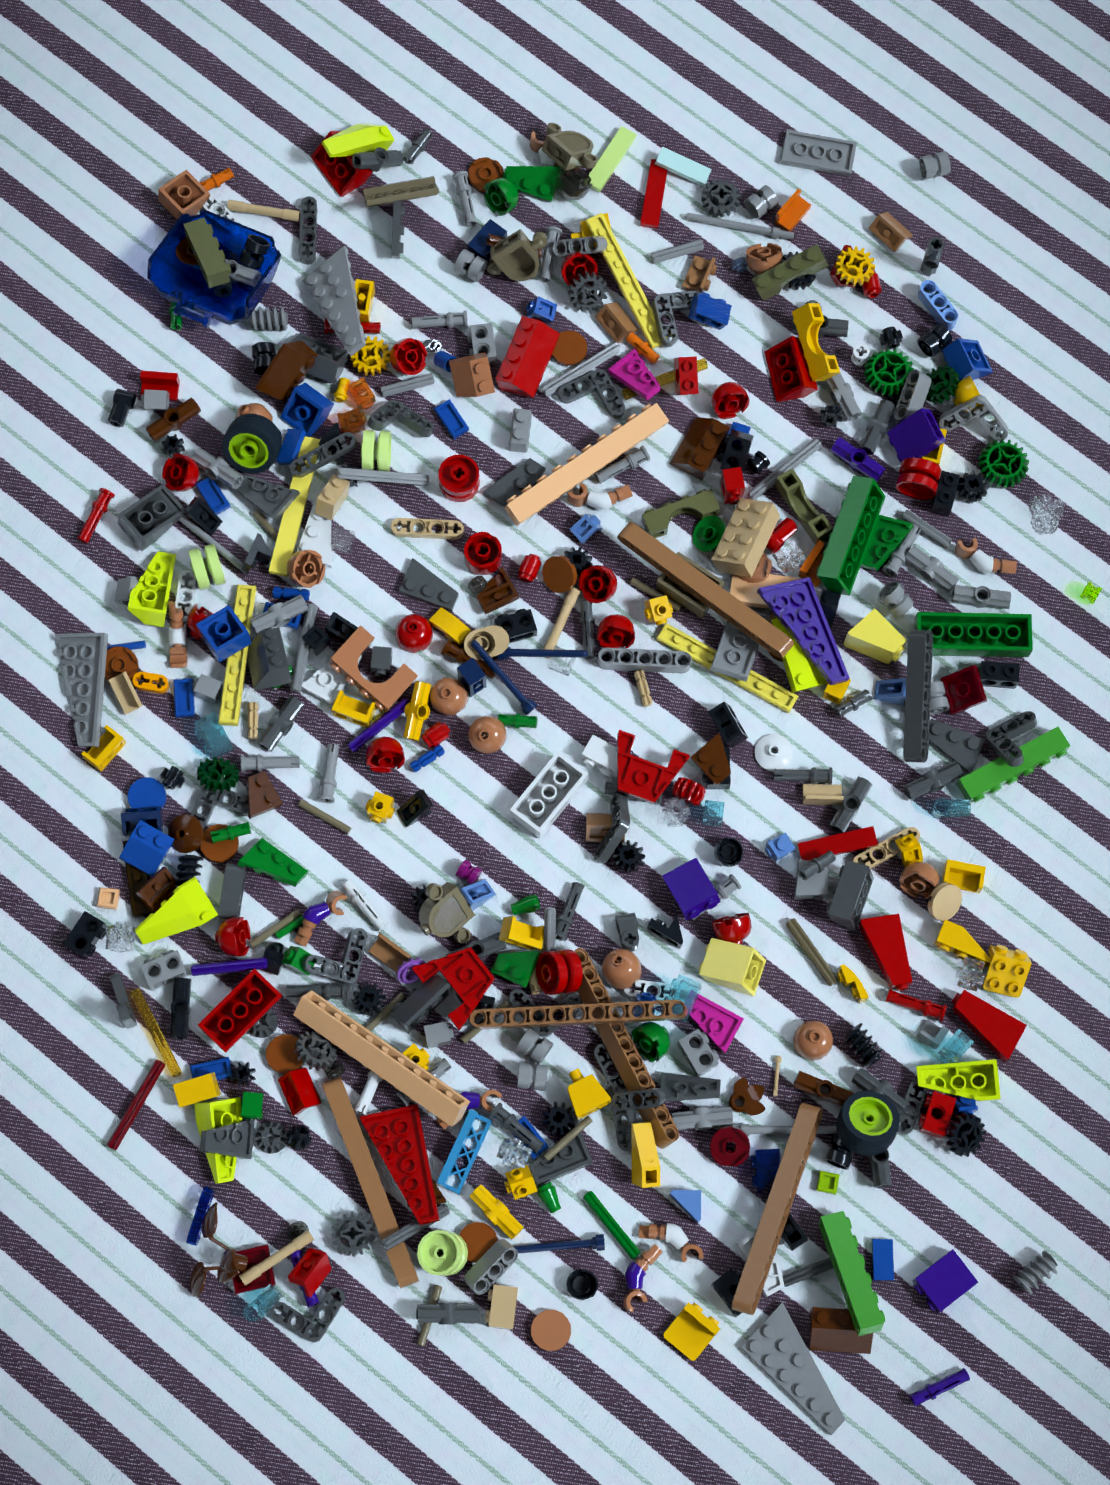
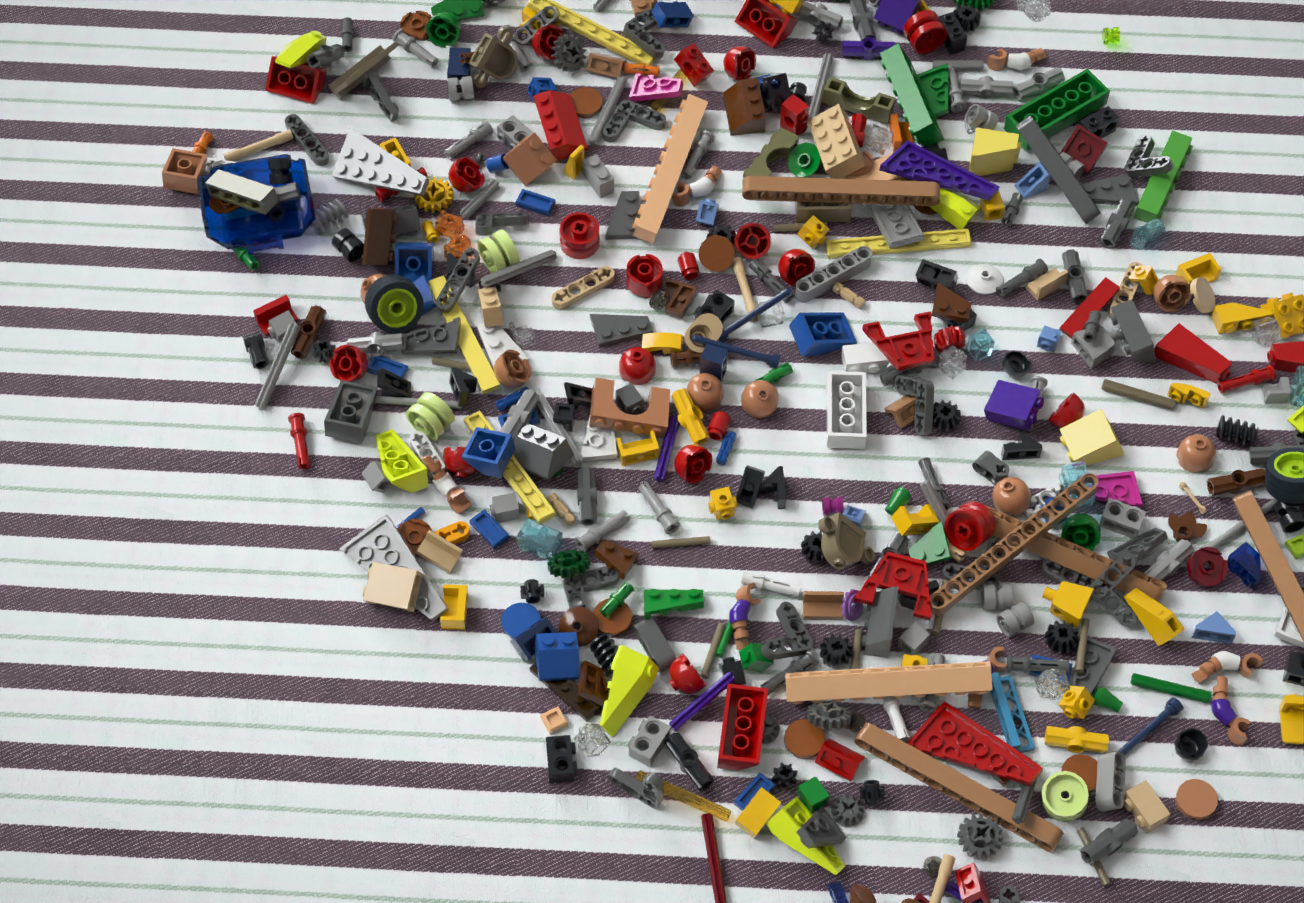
camera: 35 degrees left, 15 degrees down
(65, 699) = (392, 586): none -> tan panel
(124, 435) = (277, 366): none -> light grey axle
(440, 819) = (775, 484): none -> black slope
(507, 405) = (574, 164): none -> yellow slope
(590, 709) = (821, 332): none -> blue slope

